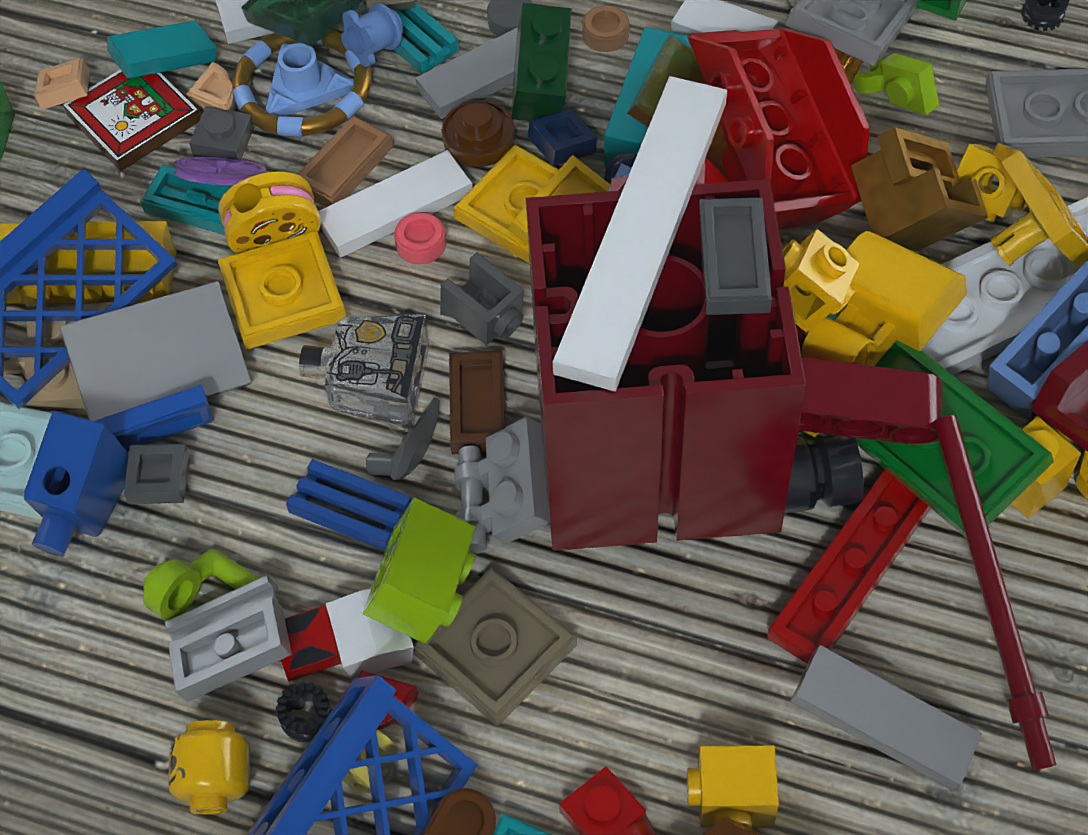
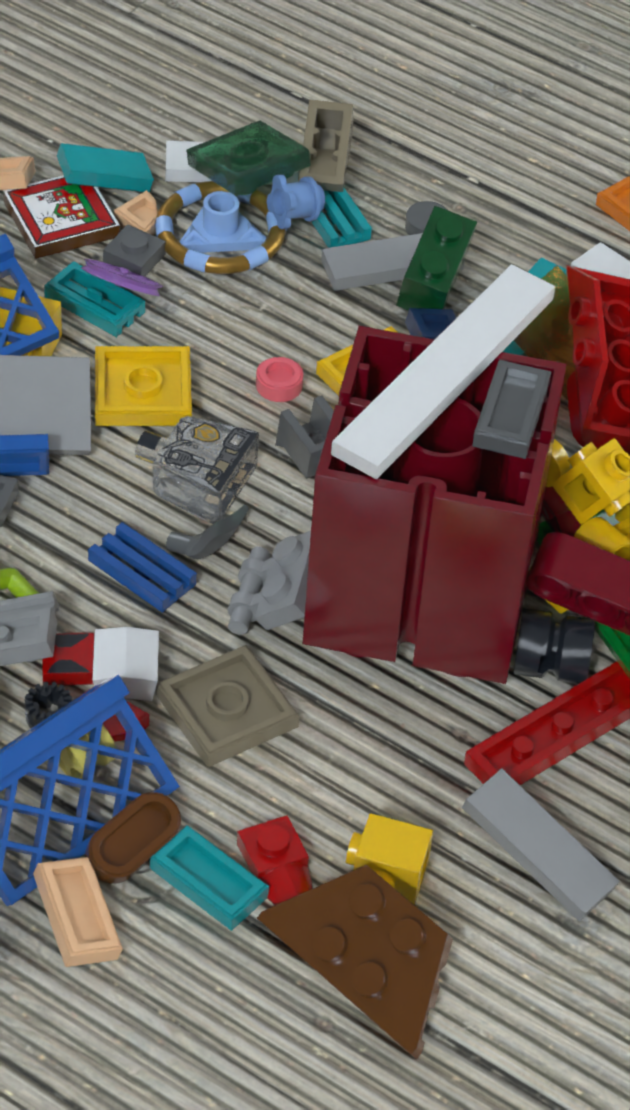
camera: 10 degrees right, 10 degrees down
(267, 210) = (152, 315): yellow head -> none
(346, 160) = (233, 302): medium nougat tile -> none
(380, 207) = (248, 346): white tile -> none
(421, 572) = (182, 623): lime brick -> none
(475, 398) = (281, 513): reddish brown tile -> none
(478, 133) = (360, 304): reddish brown plate -> none
(605, 28) = (509, 250): medium nougat tile -> none

